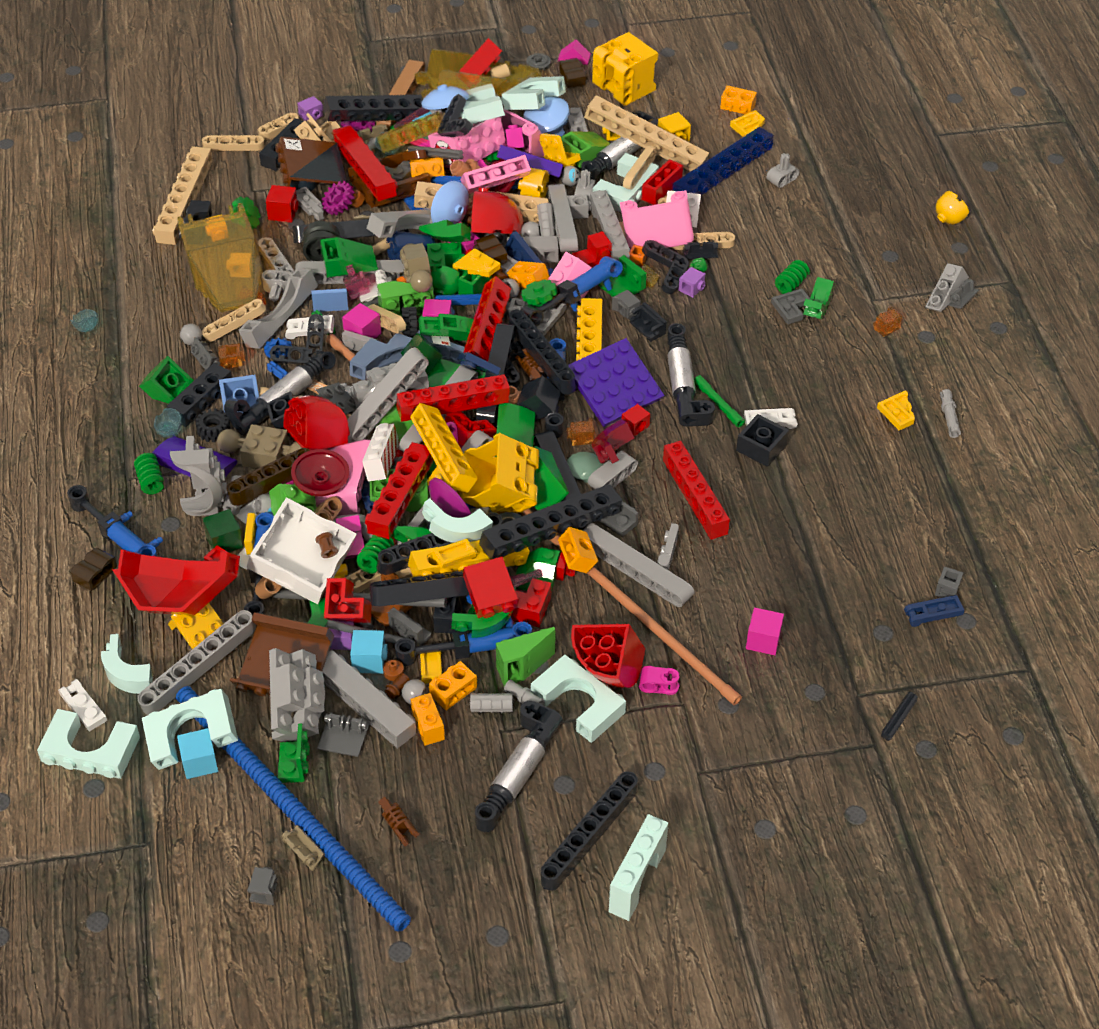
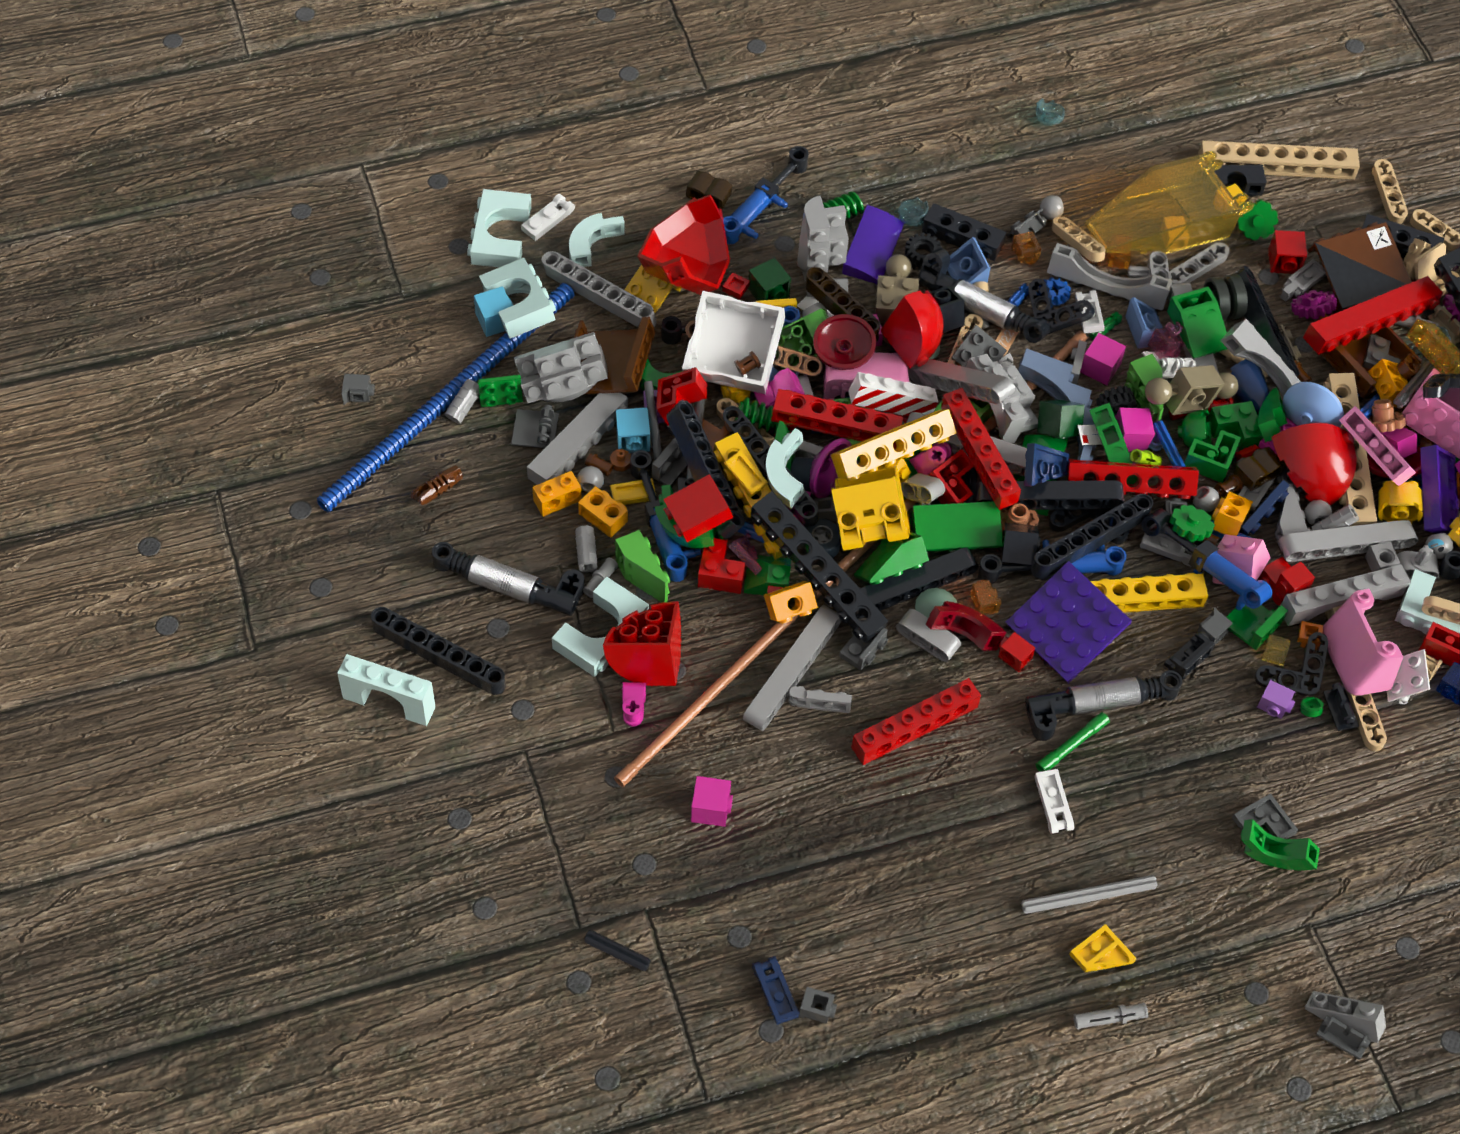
camera: 80 degrees right, 10 degrees up
(166, 381) = (975, 199): green slope -> none
(303, 788) = (463, 401): none -> light grey axle
(303, 847) = (393, 418): dark tan hinge -> none
(389, 319) = (1109, 379): tan beam -> none
(467, 313) = (1146, 457): none -> lime pin
(477, 263) = (1222, 452): yellow wing -> none
(762, 440) = (1007, 788): black brick -> none
(792, 276) = (1315, 816): green piece -> none
(849, 411) = (1089, 894): none -> light grey axle
(887, 322) = (1262, 937): clear orange brick -> none

